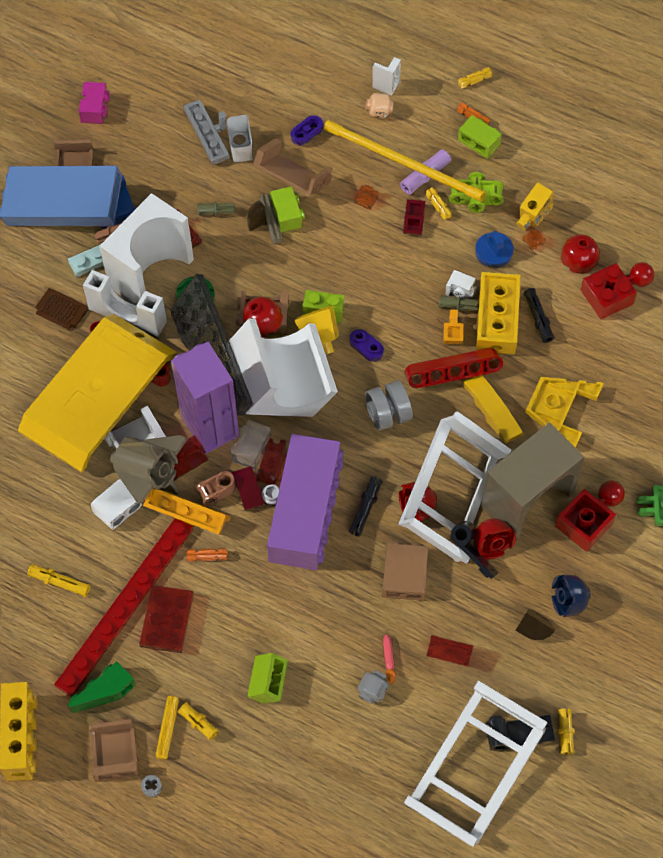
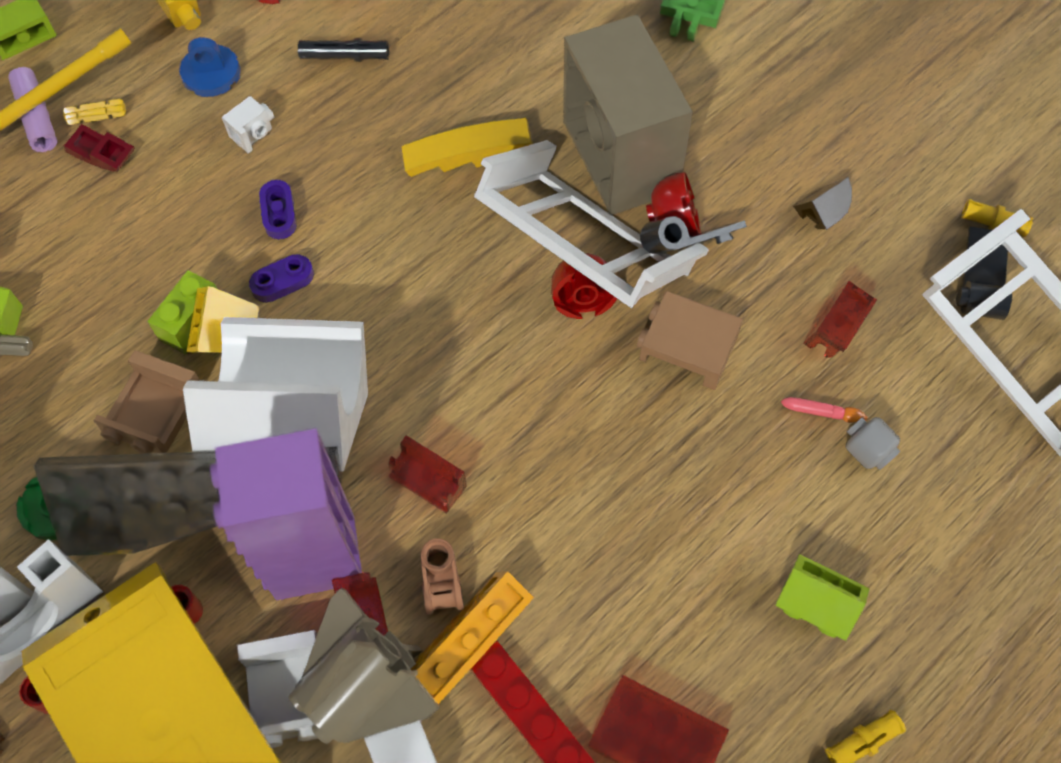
camera: 70 degrees left, 0 degrees up
(207, 554) = (556, 632): orange axle -> none
(248, 488) = (460, 526): dark red slope -> none
(251, 444) = (383, 497): clear brick -> none
(266, 313) = (157, 403): red cylinder -> none
(270, 494) = (484, 494): white plate -> none
(305, 502) = (527, 440): medium lavender brick -> none
(366, 197) = (25, 199): clear orange tile -> none
(369, 497) = (563, 365): black pin -> none
(383, 407) = (408, 269): light grey wheel -> none
(407, 324) = (277, 212): none -> dark purple plate
(445, 364) = (380, 174): red beam -> none
(453, 330) = (316, 157): light orange plate -> none
(458, 303) = (274, 137): olive axle -> none
(485, 185) = (107, 72): lime axle -> none
(498, 312) = (319, 89): yellow brick -> none
(534, 234) = (220, 18): clear orange plate -> none
(554, 399) = (492, 79): yellow wing -> none
(570, 595) = (797, 145): dark blue cylinder -> none
(596, 512) = (698, 79): red brick -> none

